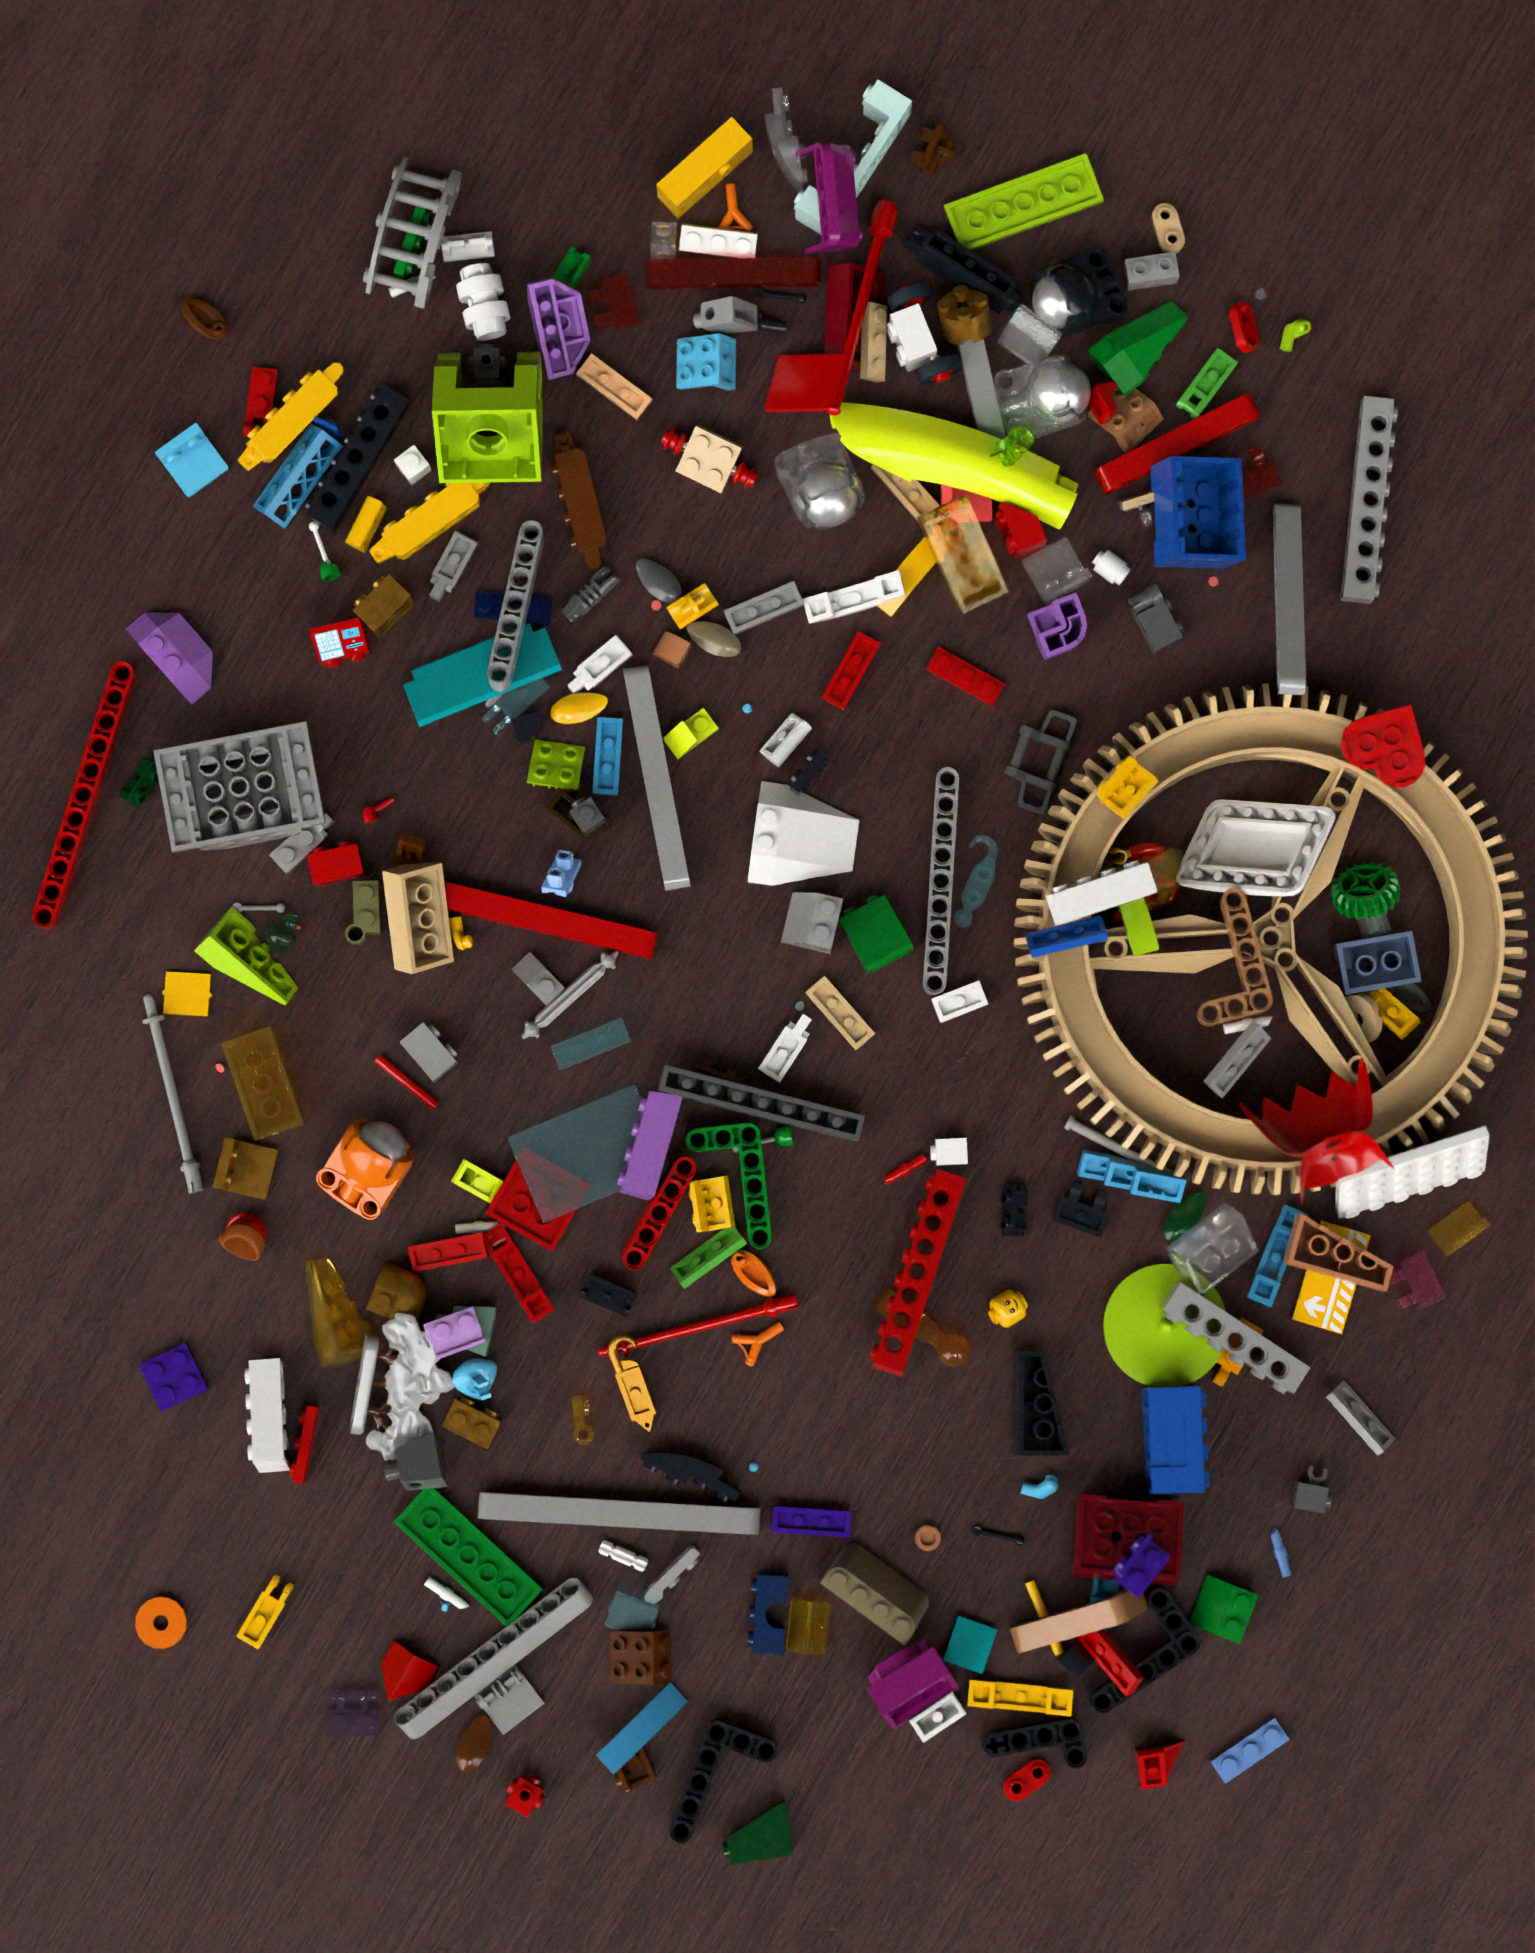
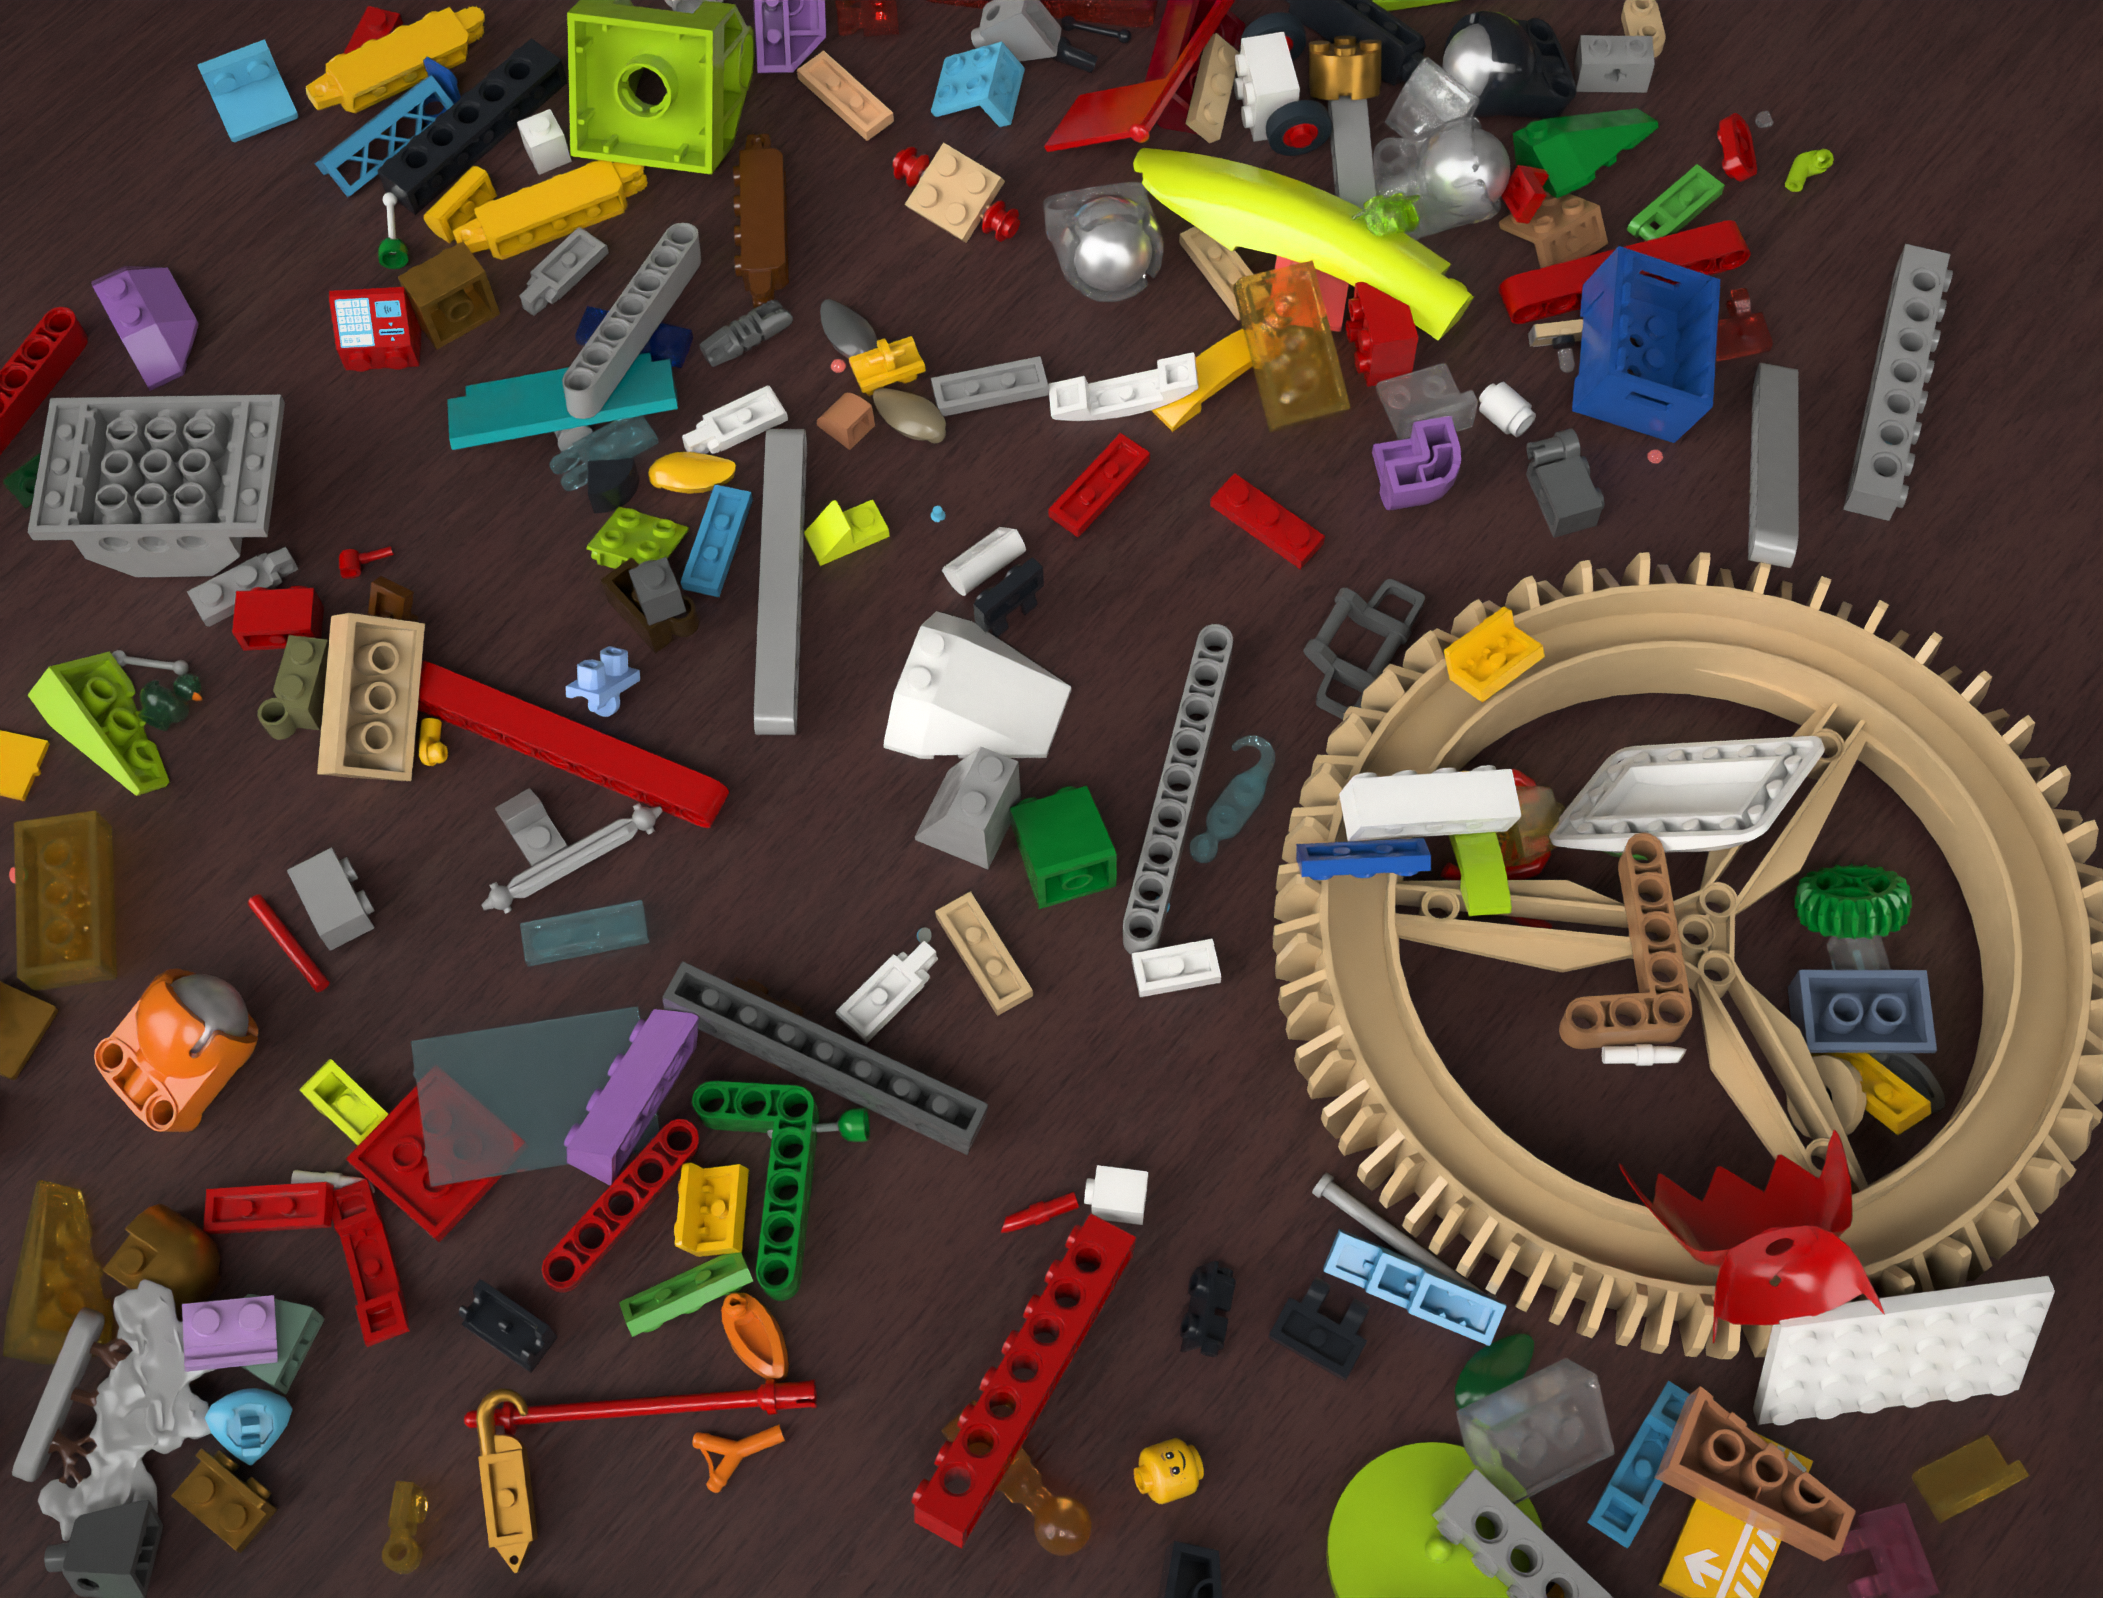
camera: 10 degrees right, 20 degrees down
(1237, 1059) = (1620, 1103): light grey plate -> none
(1387, 744) = (1920, 658): red plate -> none

